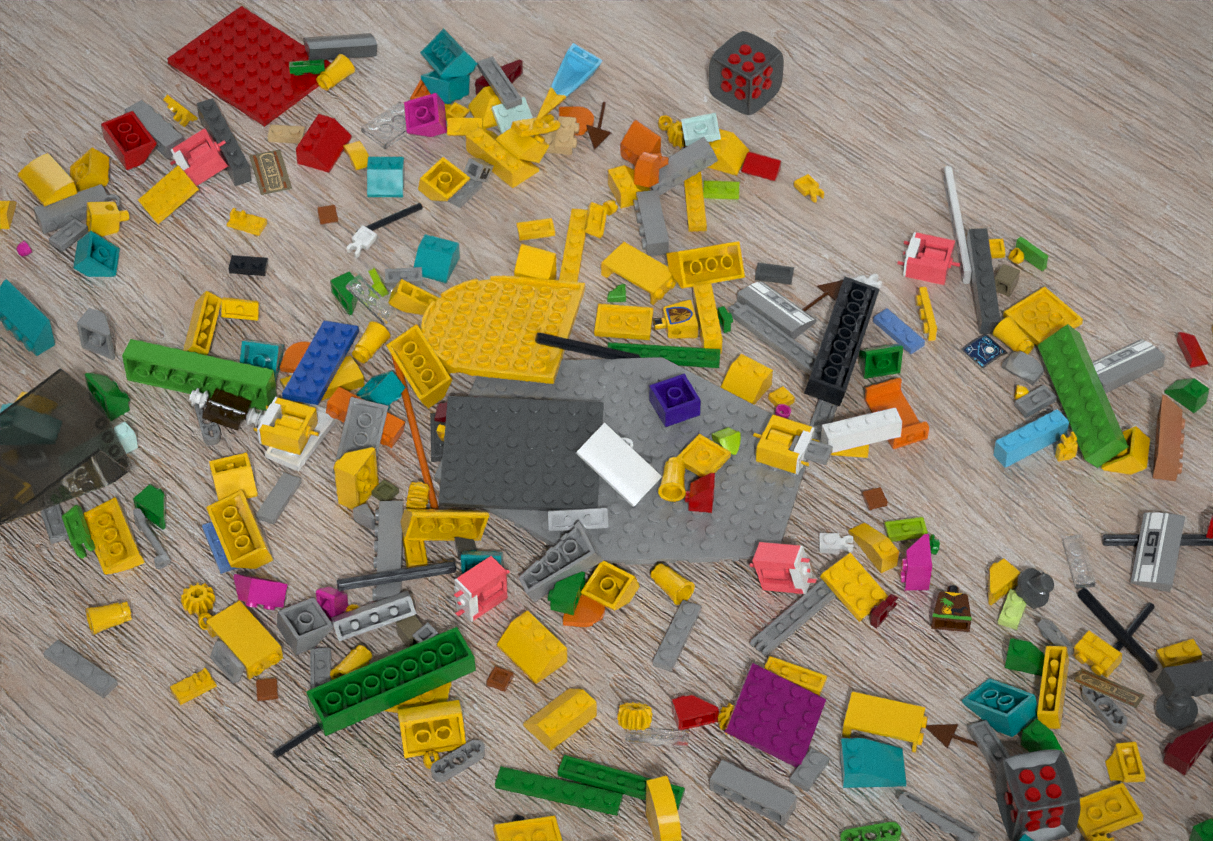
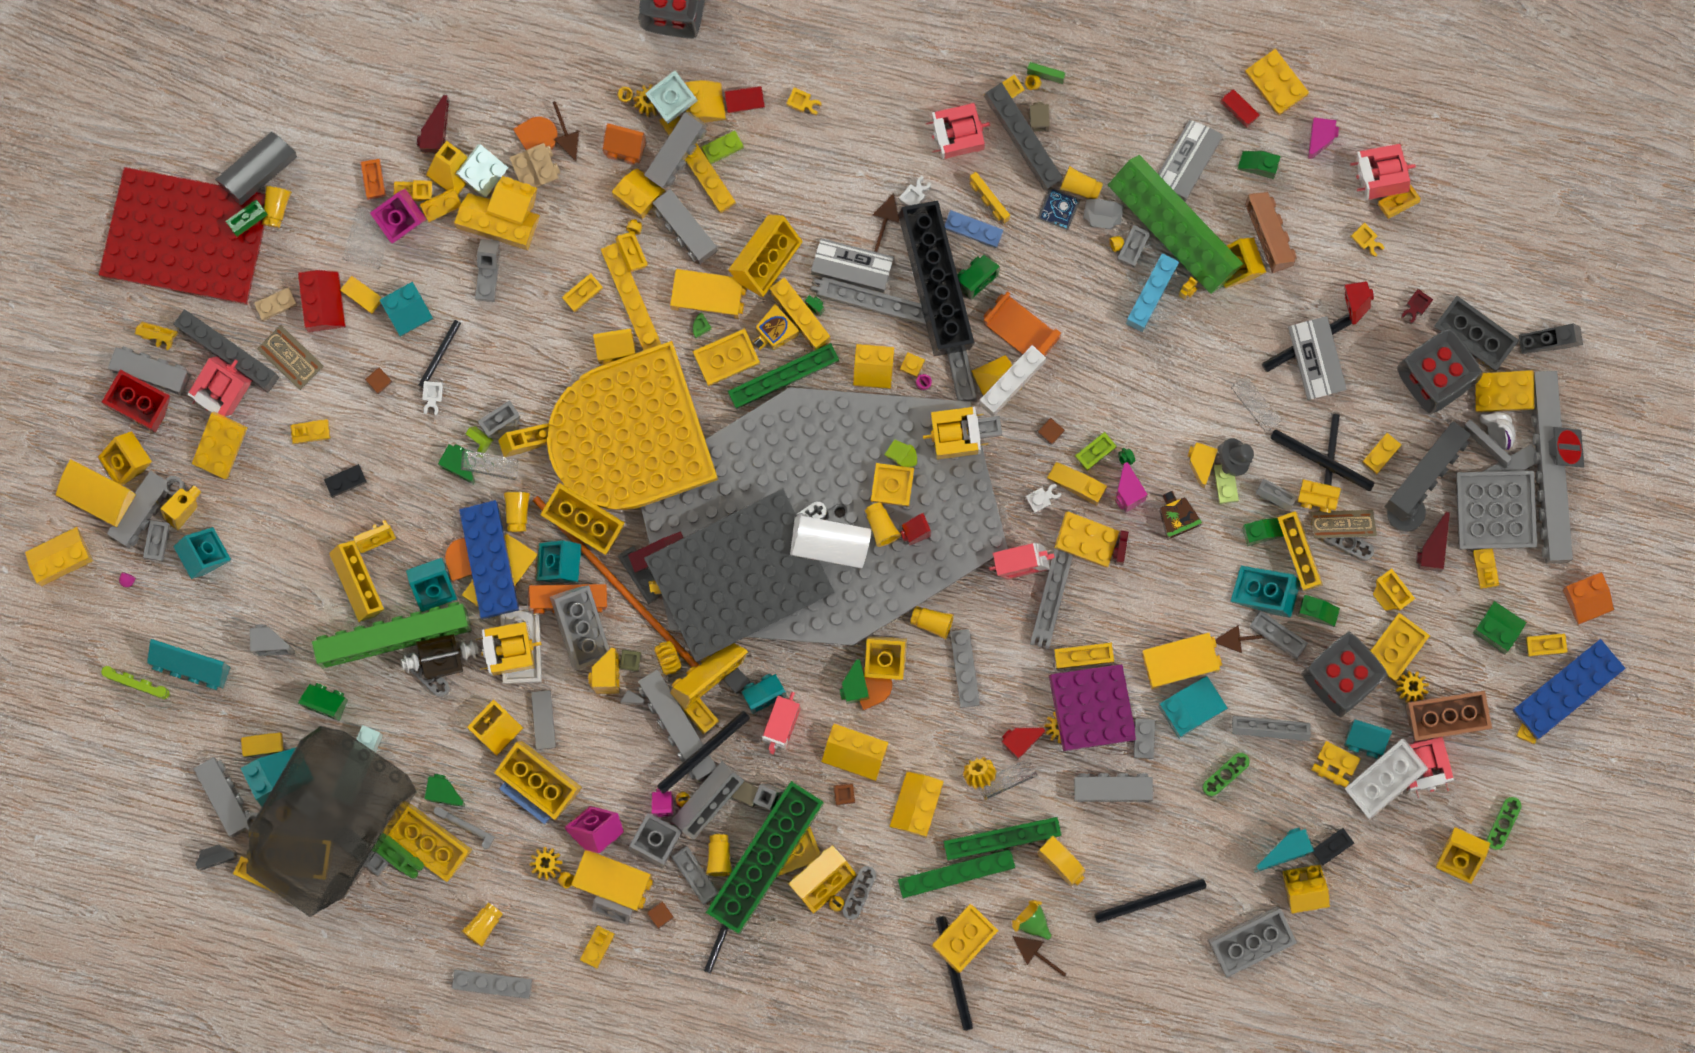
camera: 25 degrees left, 30 degrees up
(437, 258) = (514, 380): teal slope -> none
(442, 181) = (466, 287): yellow slope -> none
(447, 88) = (393, 165): teal slope -> none
(448, 56) = (375, 132): teal slope -> none
(499, 82) = (449, 144): light grey plate -> none
(528, 127) = (515, 180): yellow hinge -> none
(566, 519) = (824, 612): light grey plate -> none
(570, 556) = (838, 657): light grey wedge -> none
(574, 71) = (503, 78): medium azure plate -> none
(581, 347) = (722, 422): black axle -> none
(648, 167) = (652, 174): orange brick -> none
(674, 400) = (835, 440): dark purple brick -> none
(774, 273) = (827, 222): dark grey tile -> none
(957, 225) = (960, 72): white tile -> none
(1042, 315) = (1093, 144): yellow plate -> none

